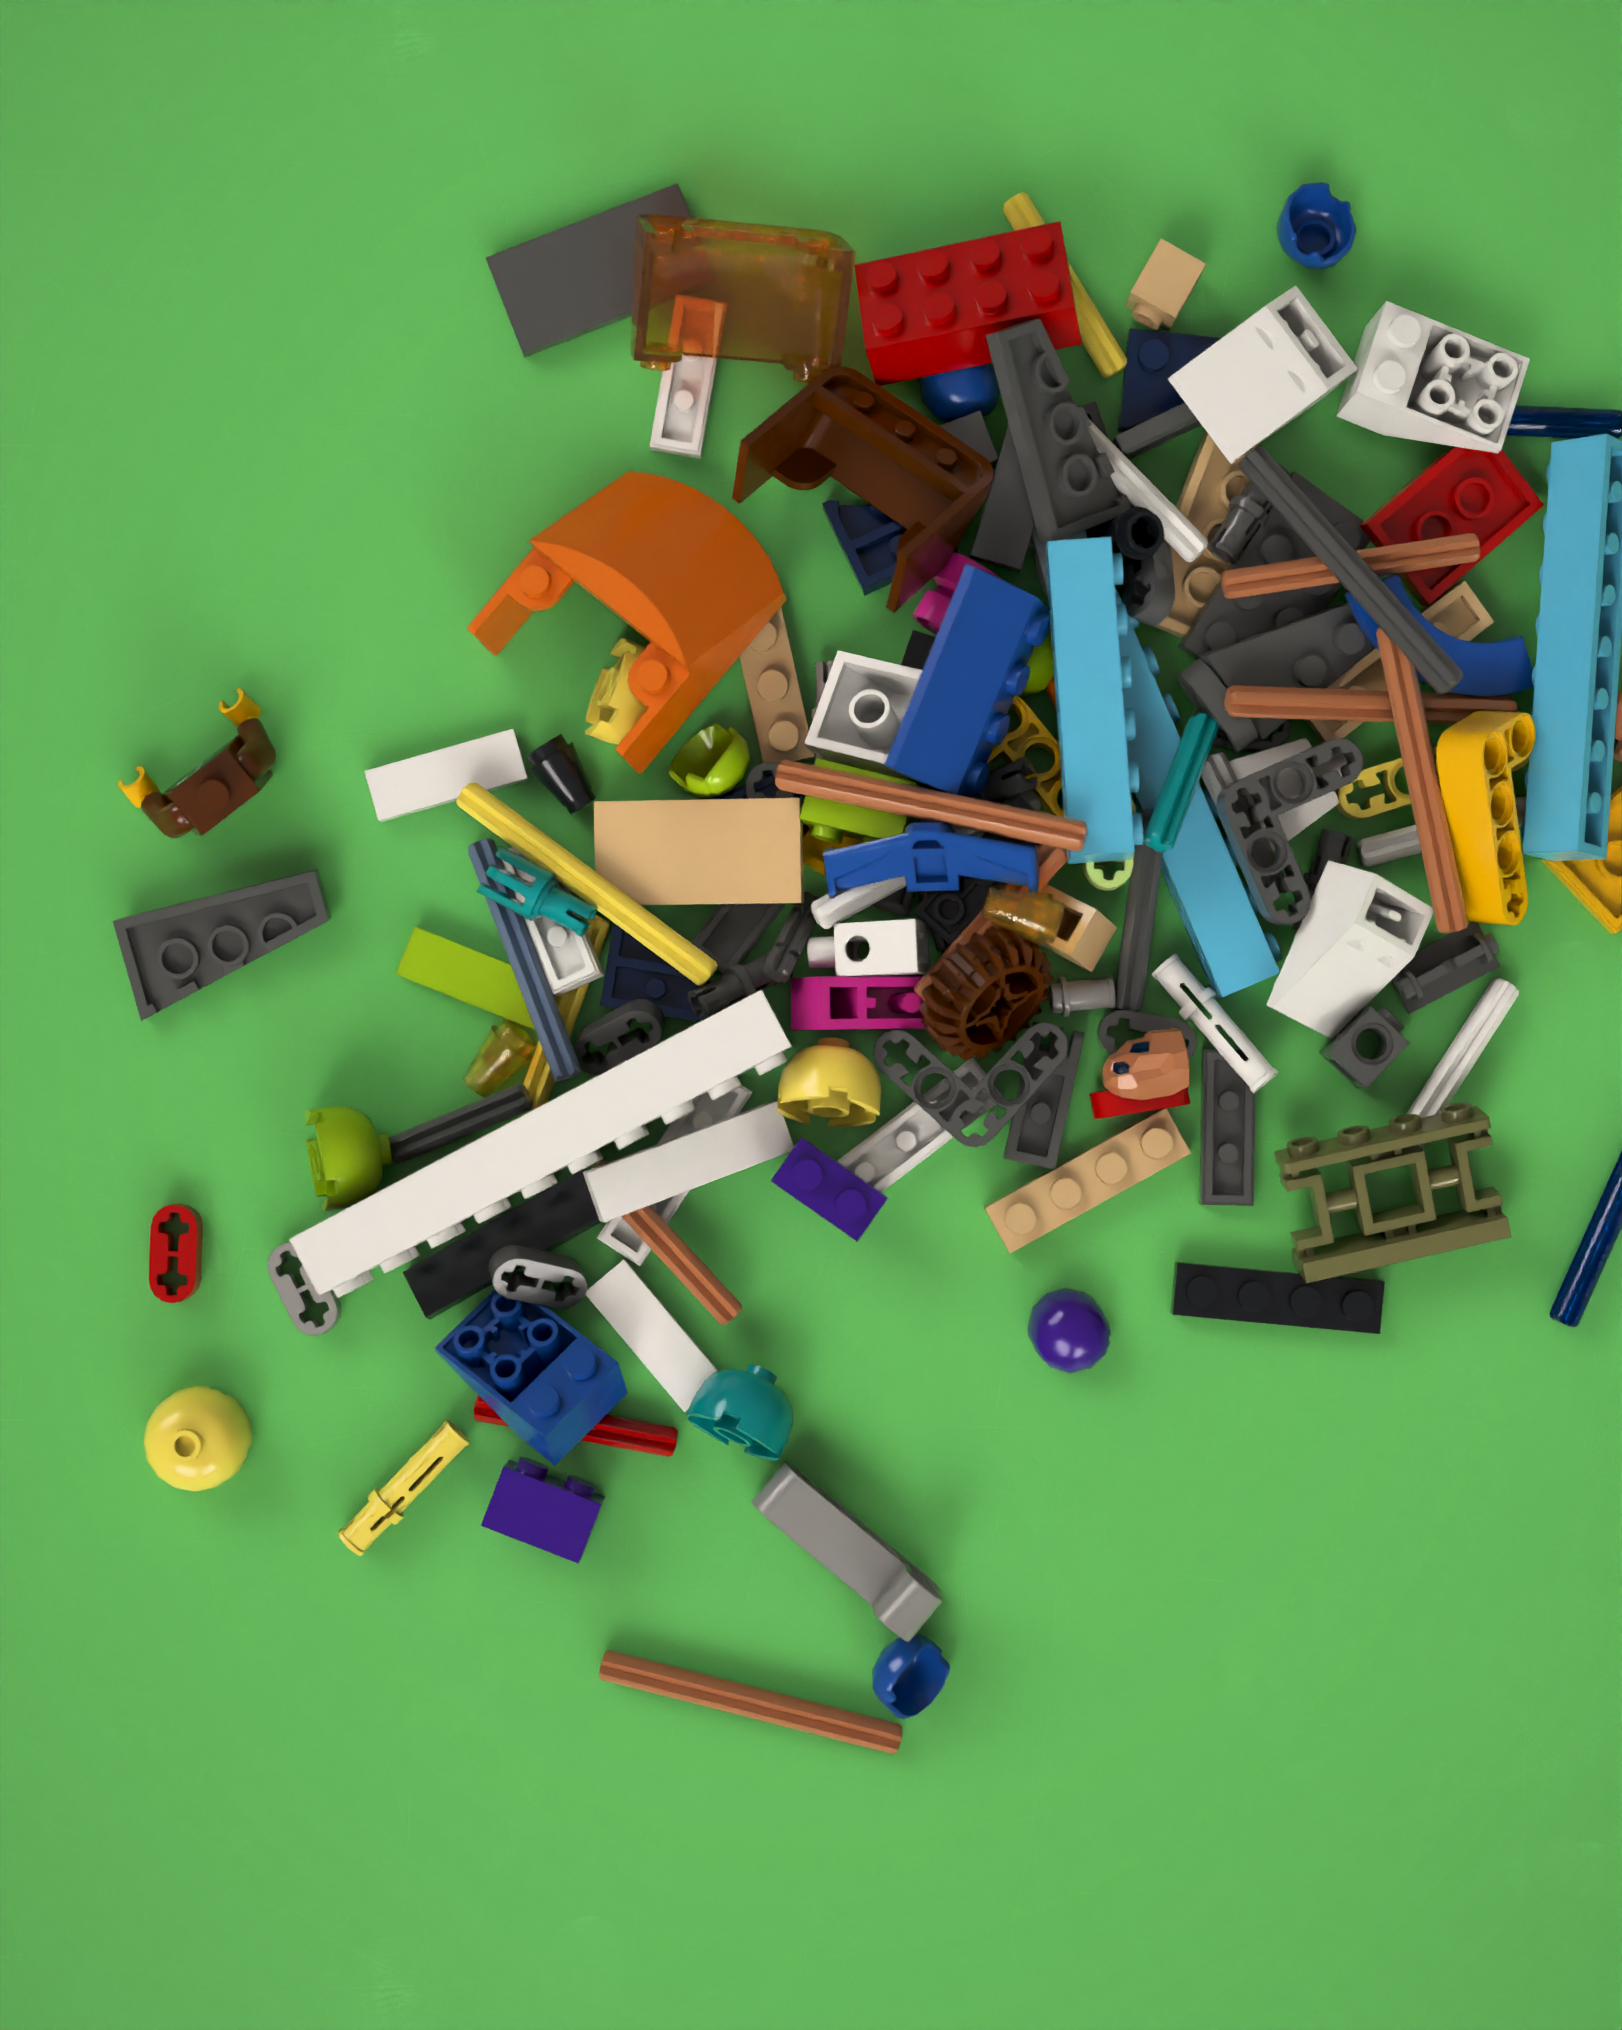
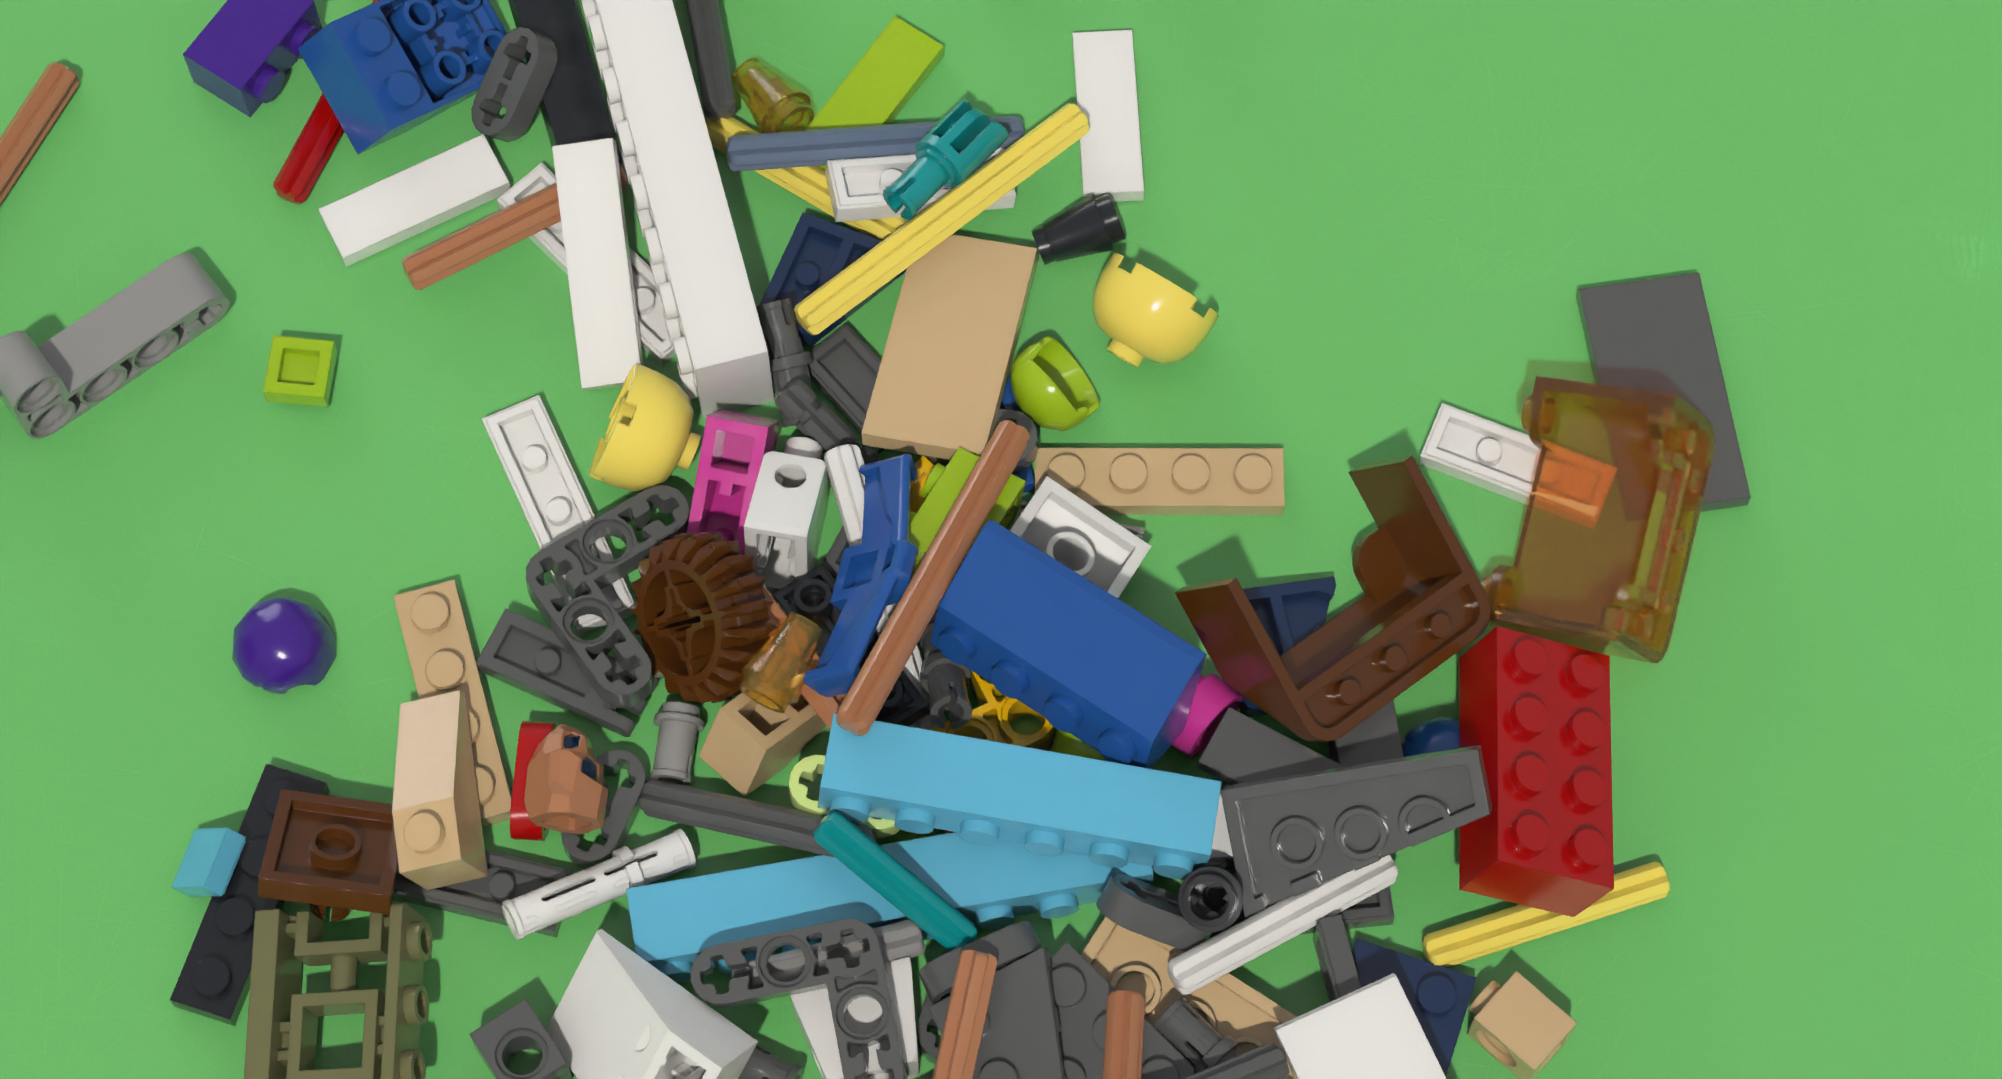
camera: 95 degrees right, 20 degrees down
(613, 1028) = (772, 218): dark grey beam -> none
(667, 568) = (1273, 373): orange windscreen -> none
(744, 1410) = (299, 264): teal cylinder -> none
(829, 1189) = (523, 399): dark purple brick -> none
(832, 1384) = (300, 371): none -> lime plate
(1176, 1168) = (437, 794): none -> tan slope
(1249, 1232) = (330, 854): none -> reddish brown tile
(1265, 1335) = (209, 862): none -> medium azure tile

